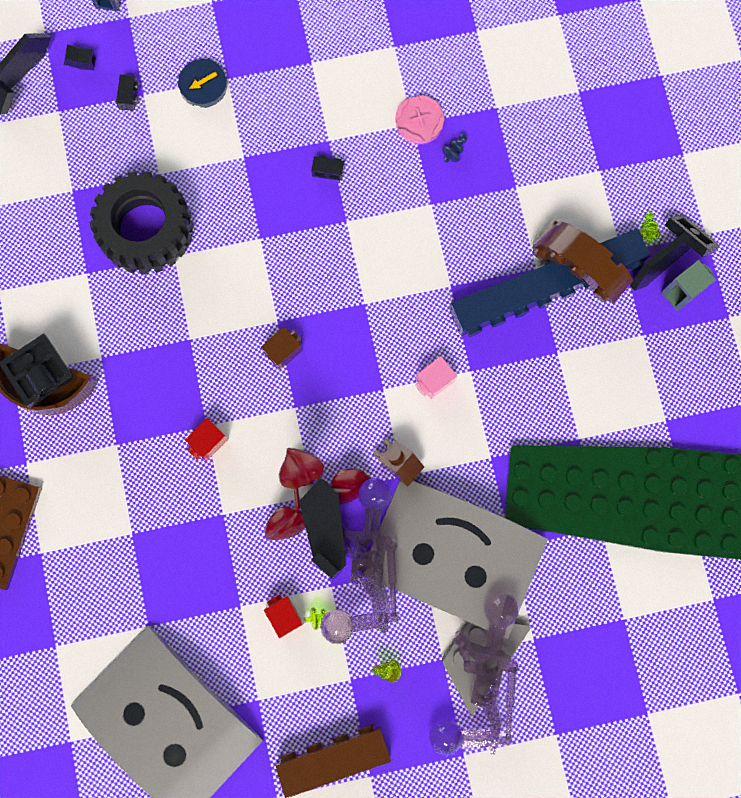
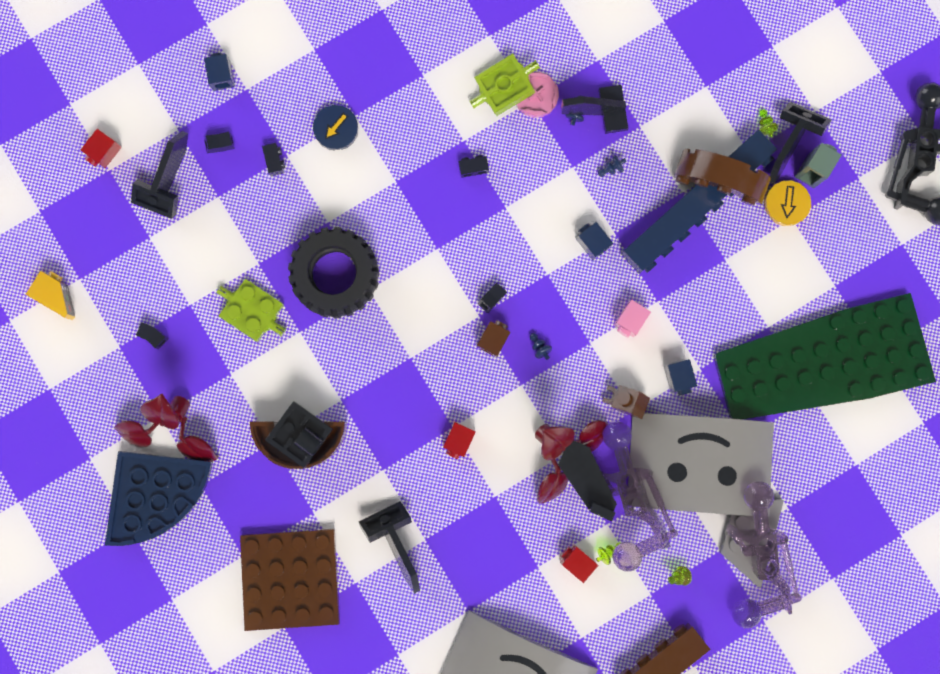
camera: 20 degrees left, 5 degrees up
(44, 234) = (251, 310): none -> lime plate
(94, 499) = (385, 524): none -> black piece
(297, 306) = (492, 298): none -> black piece
(328, 374) = (543, 351): none -> dark blue hair
(389, 96) = (504, 84): none -> lime plate
(424, 284) = (593, 240): none -> dark blue brick
(465, 456) = (680, 377): none -> dark blue brick
(470, 217) = (617, 164): none -> dark blue hair
(490, 152) = (609, 105): none -> black piece
(644, 316) = (787, 203): none -> yellow tile

